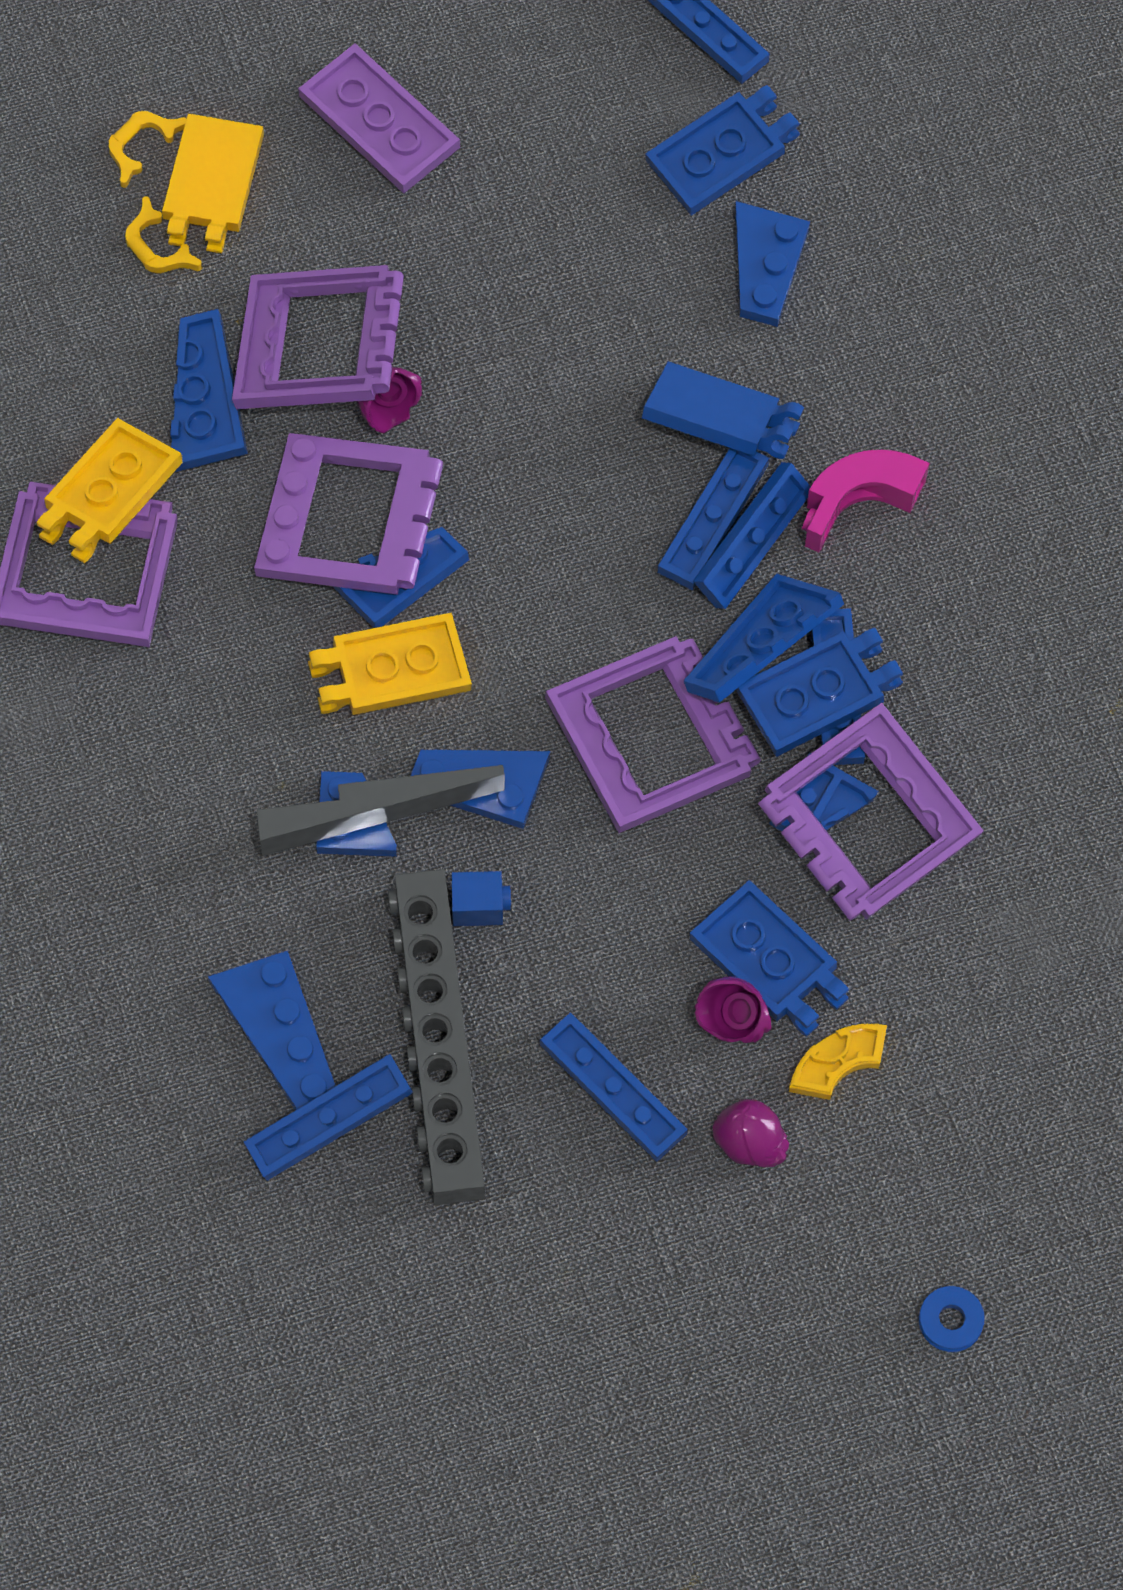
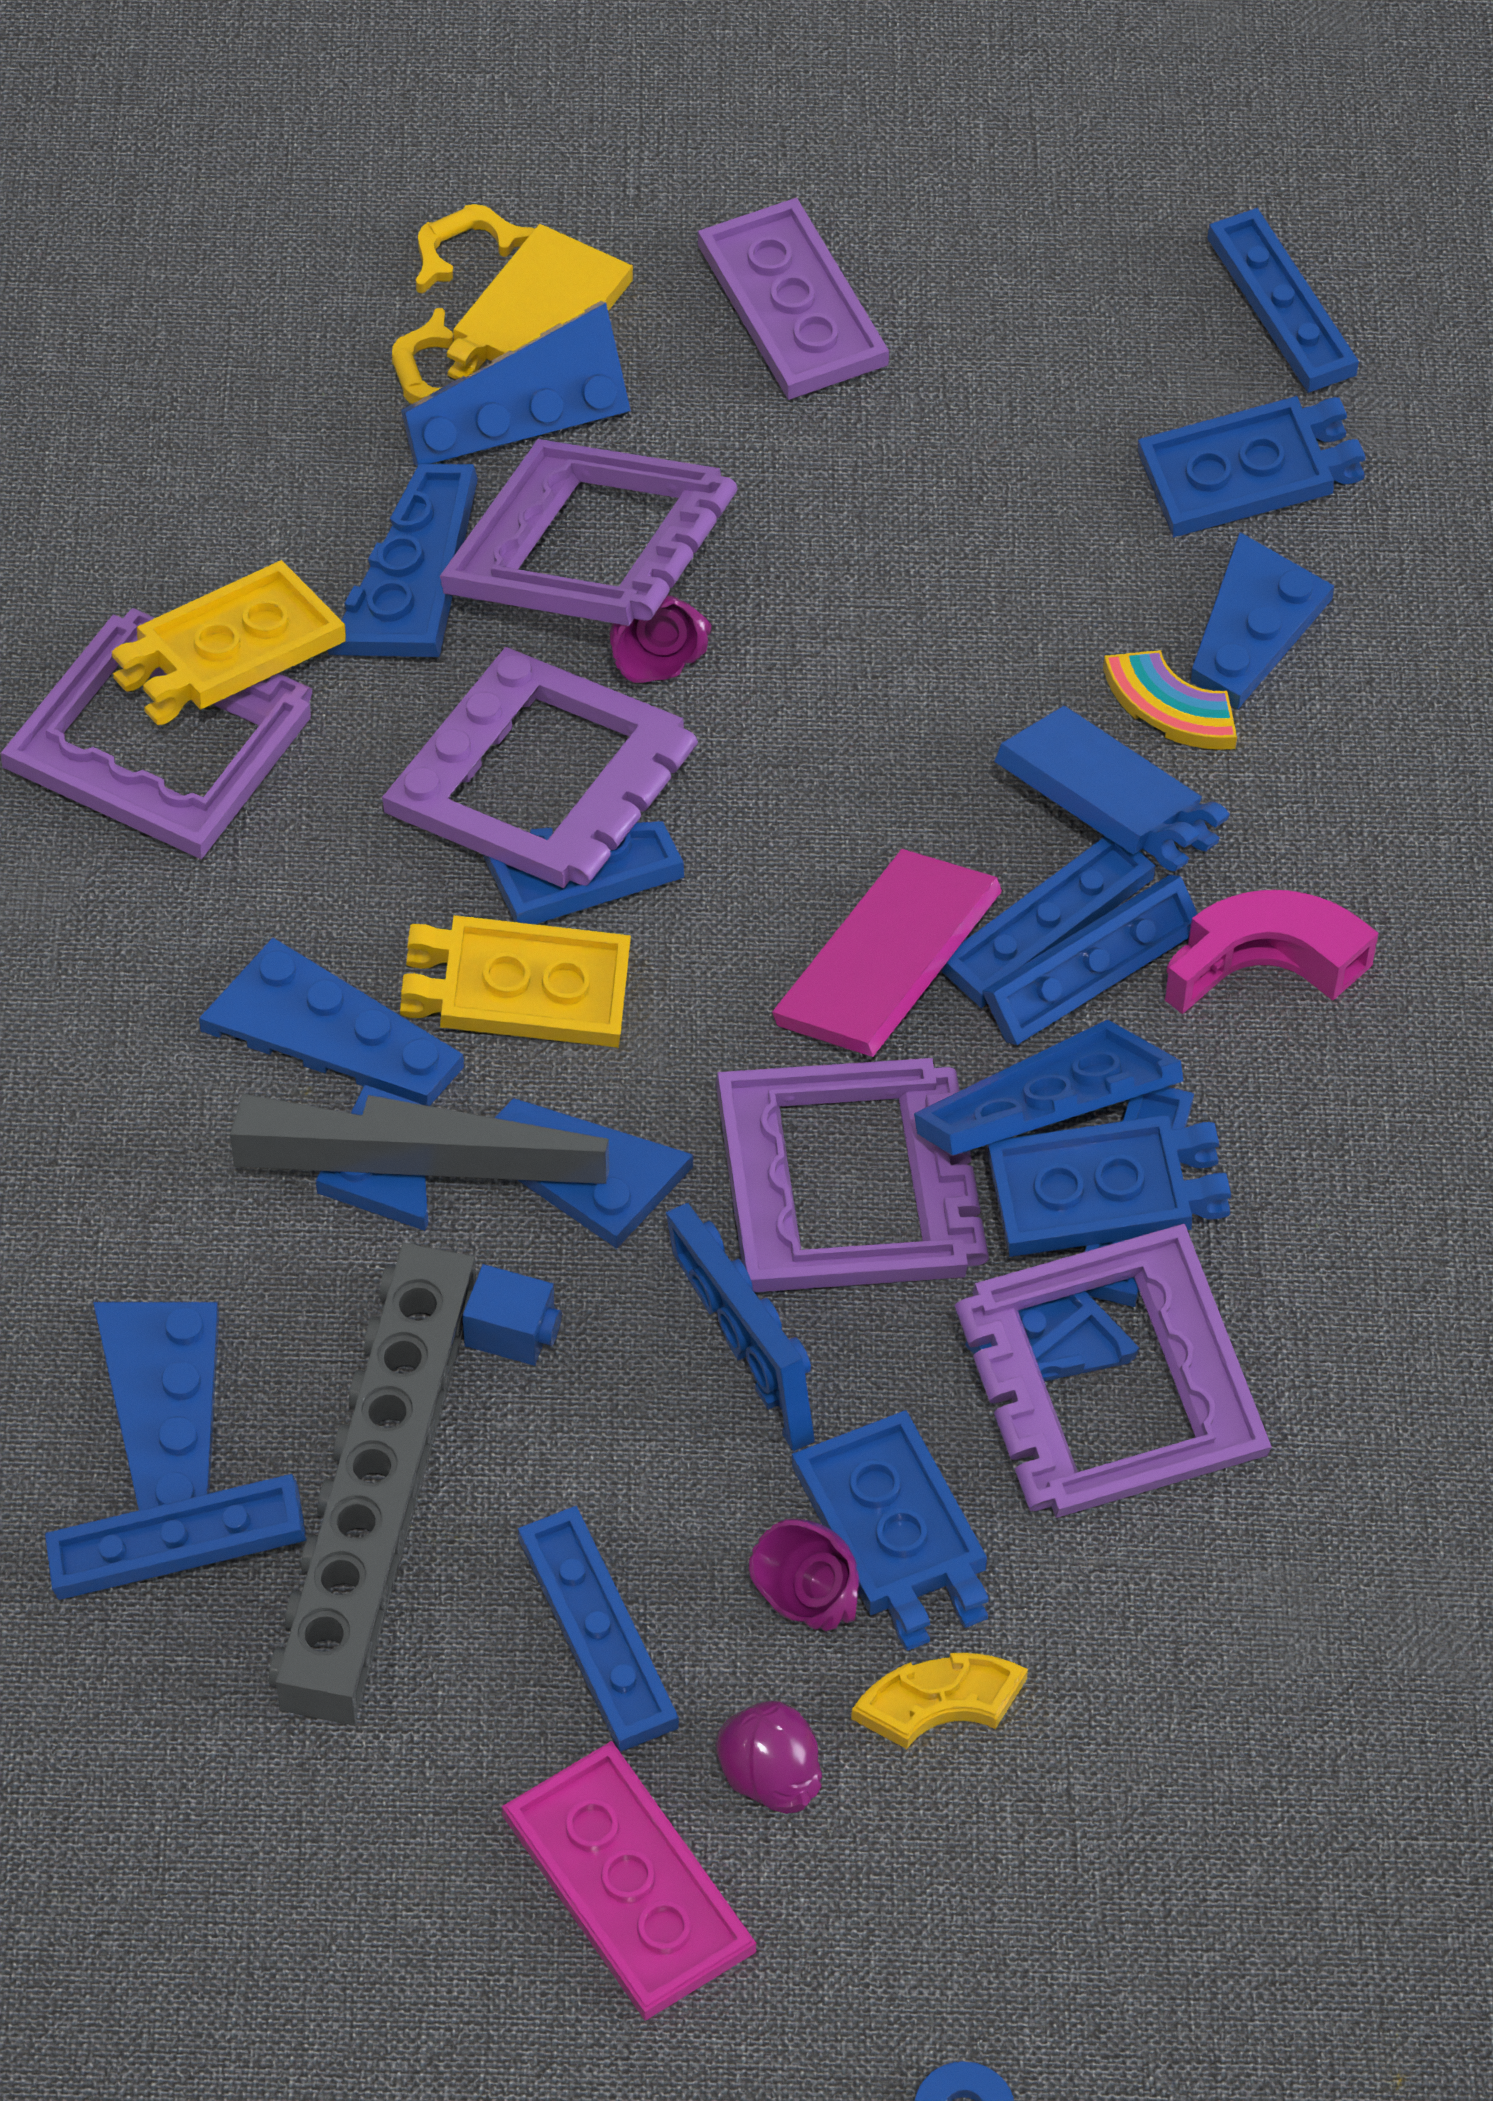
camera: 20 degrees right, 10 degrees down
(240, 239) = (540, 388): none -> blue wing
(271, 734) = (315, 1016): none -> blue wing
(621, 572) = (887, 952): none -> dark pink tile
(662, 879) = (748, 1323): none -> blue wing
(693, 1241) = (628, 1880): none -> dark pink tile
(732, 337) = (1165, 701): none -> tile

